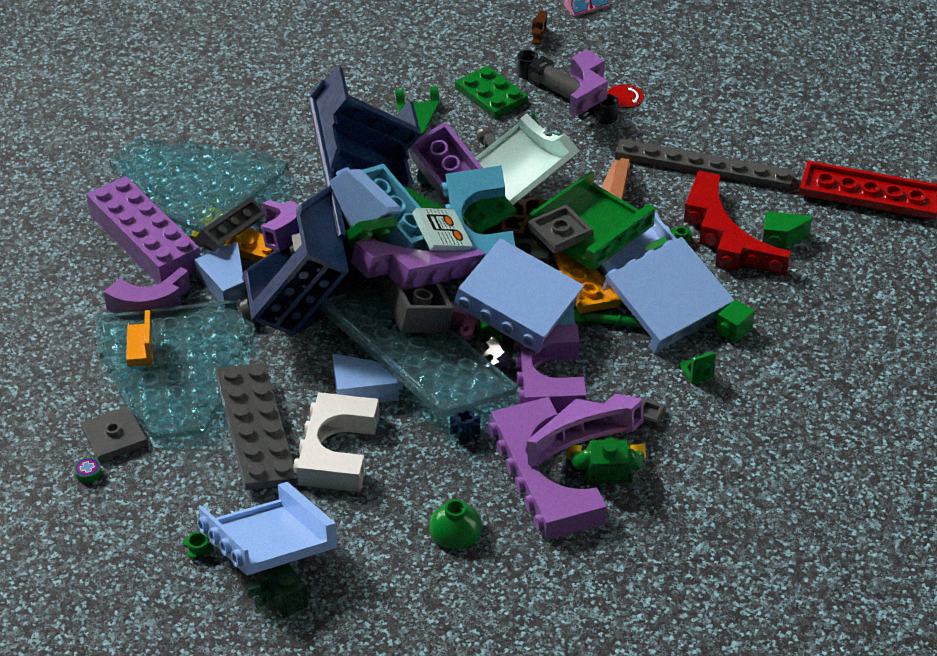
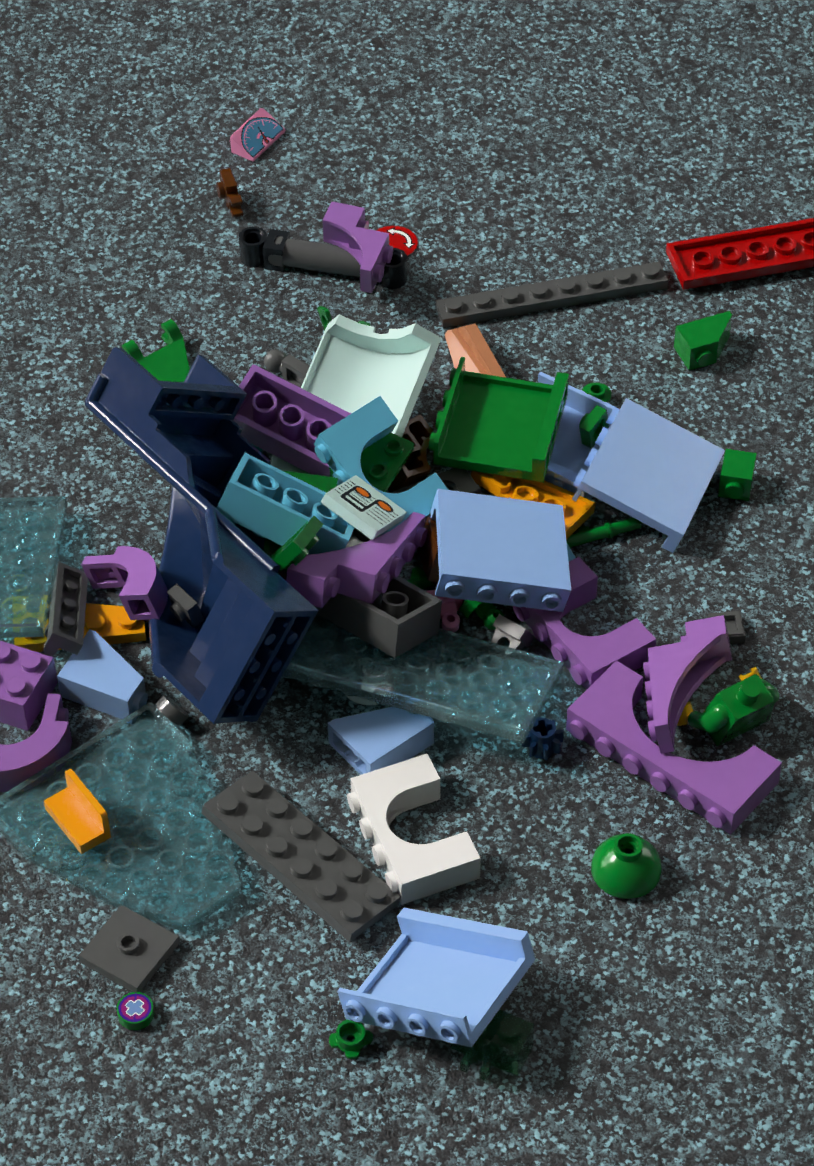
camera: 30 degrees left, 5 degrees up
(361, 197) = (265, 511): light blue slope -> none
(491, 91) = (233, 299): green plate -> none
(560, 229) = (479, 446): dark grey plate -> none
(701, 367) = (748, 549): green bracket -> none
(719, 231) = (636, 371): red arch -> none

